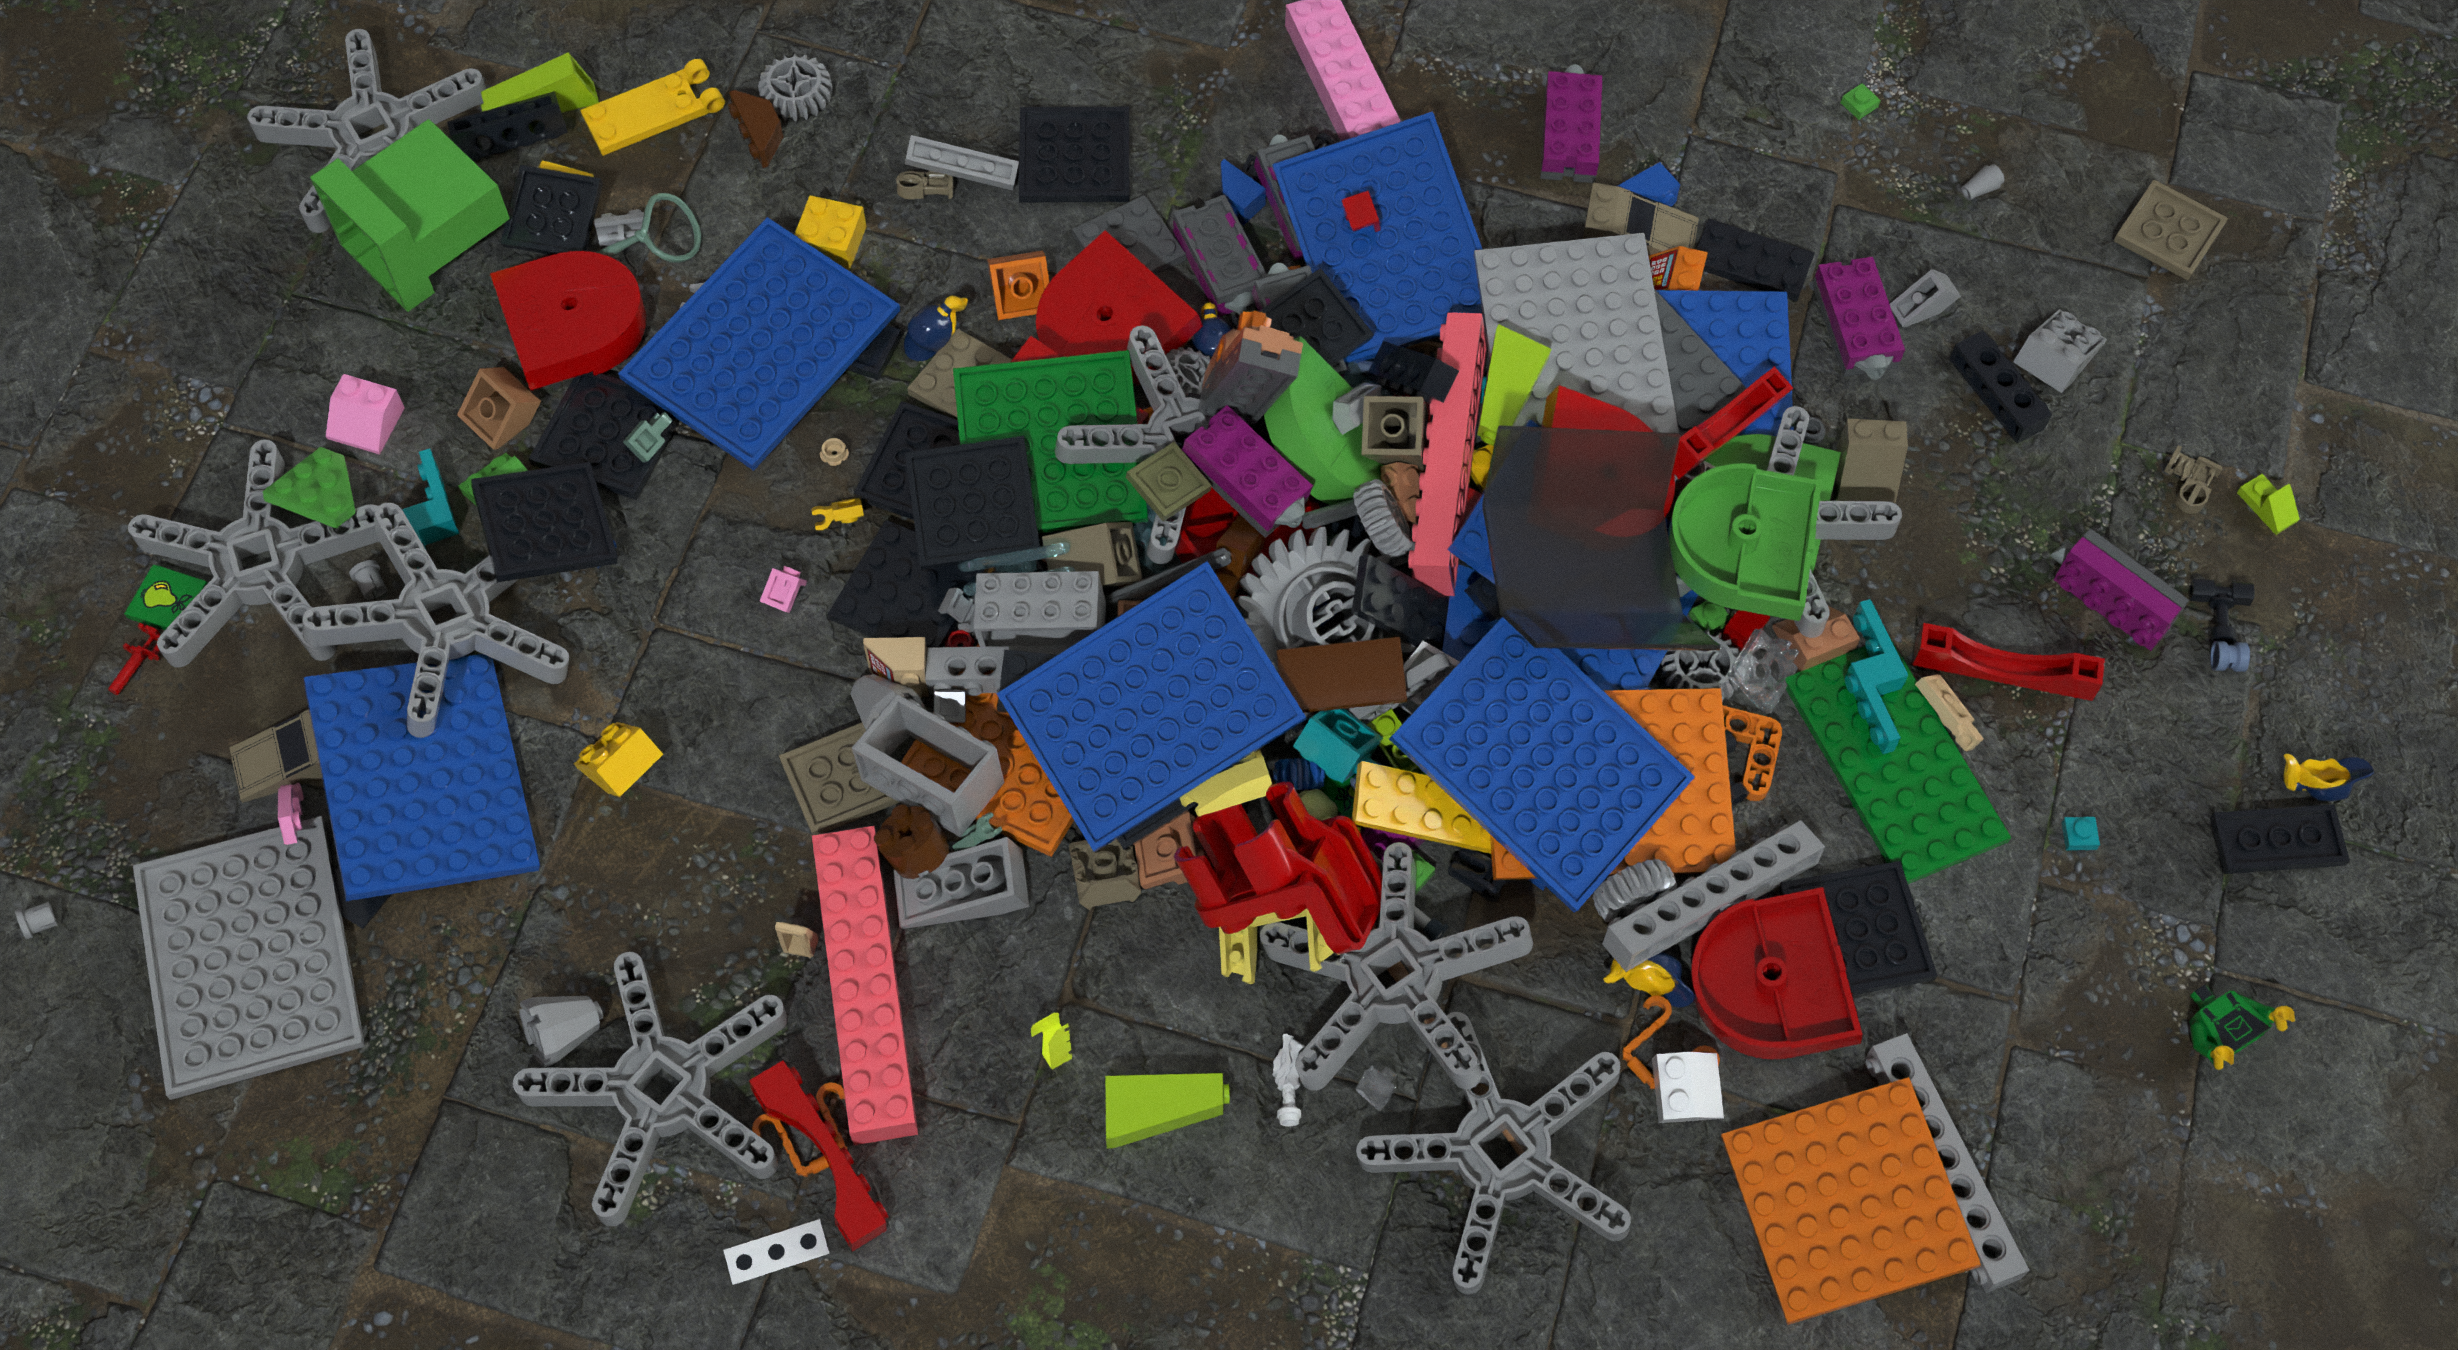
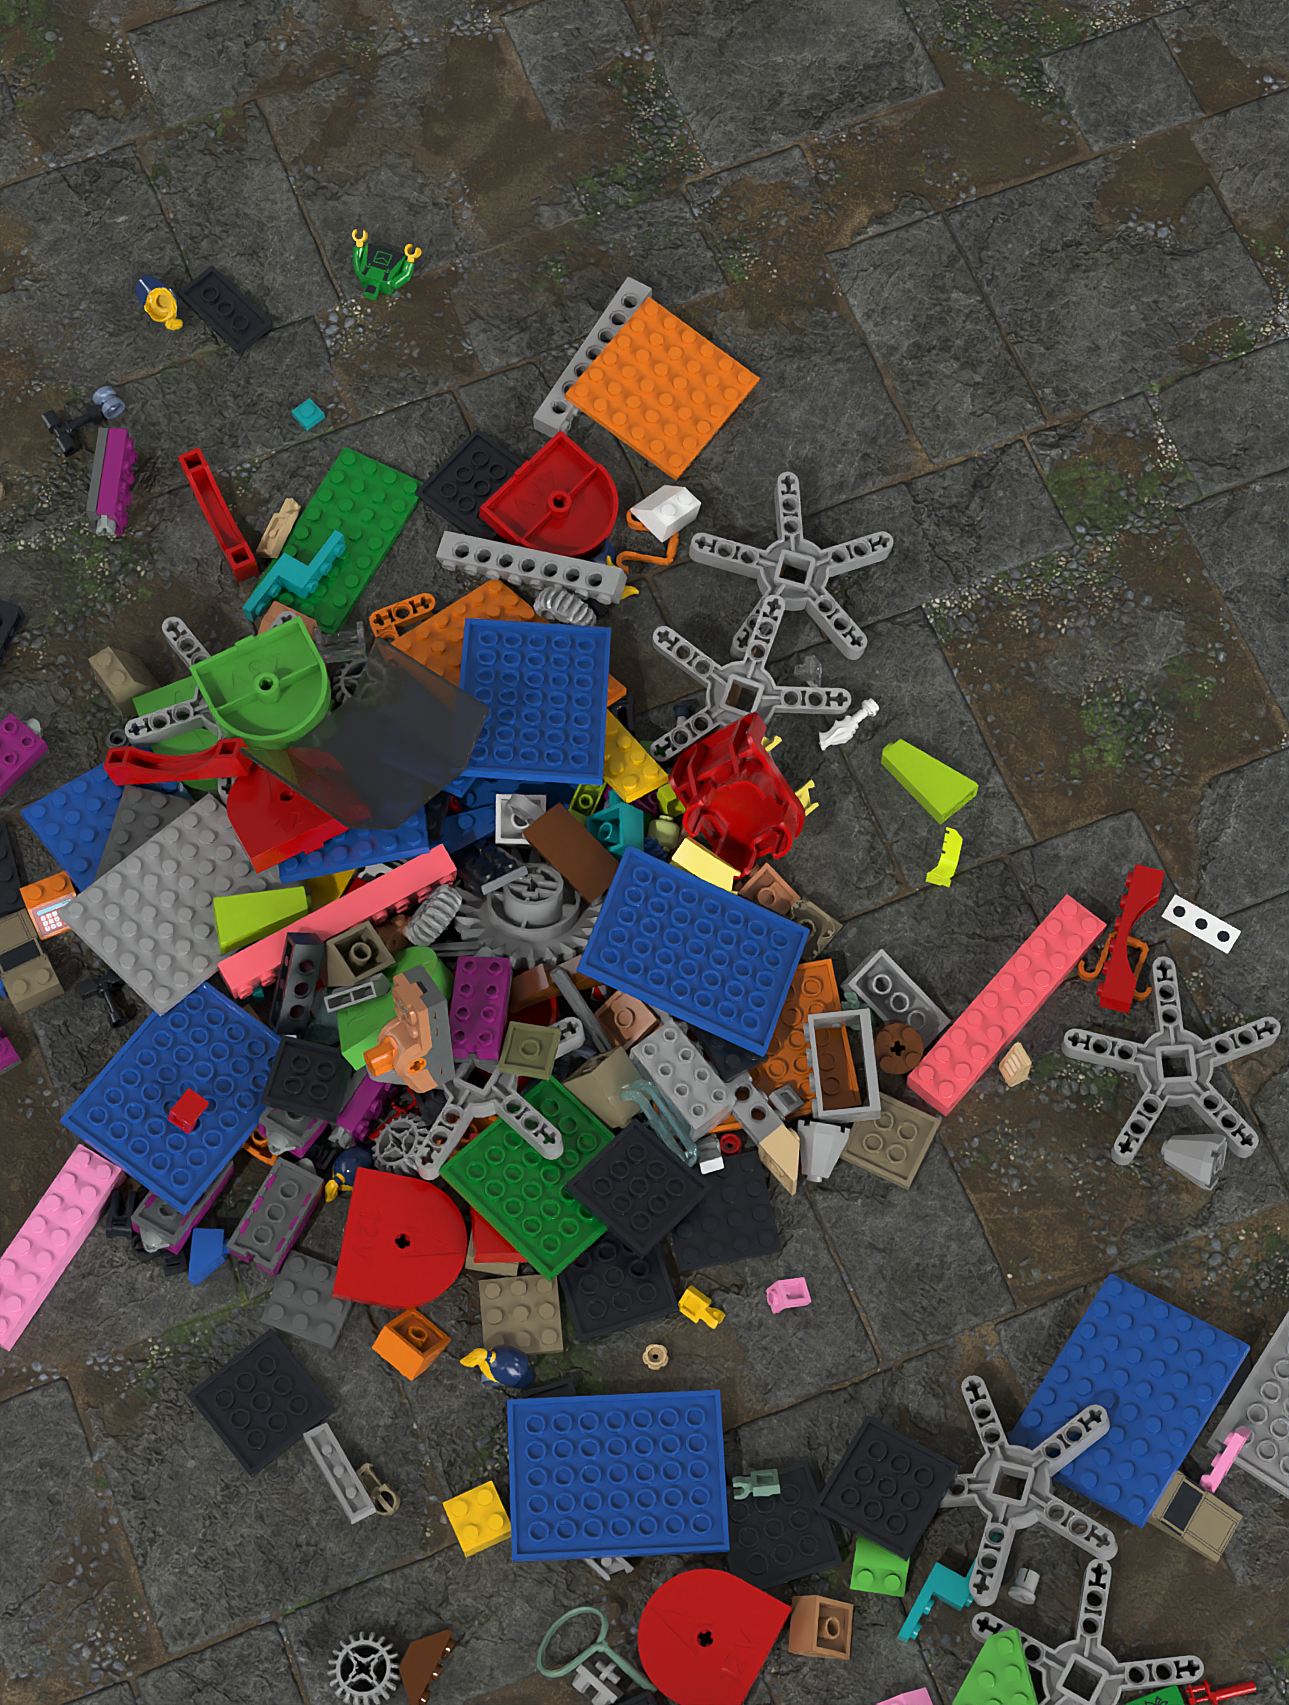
camera: 125 degrees left, 5 degrees up
(618, 758) = (999, 1290): yellow slope -> none

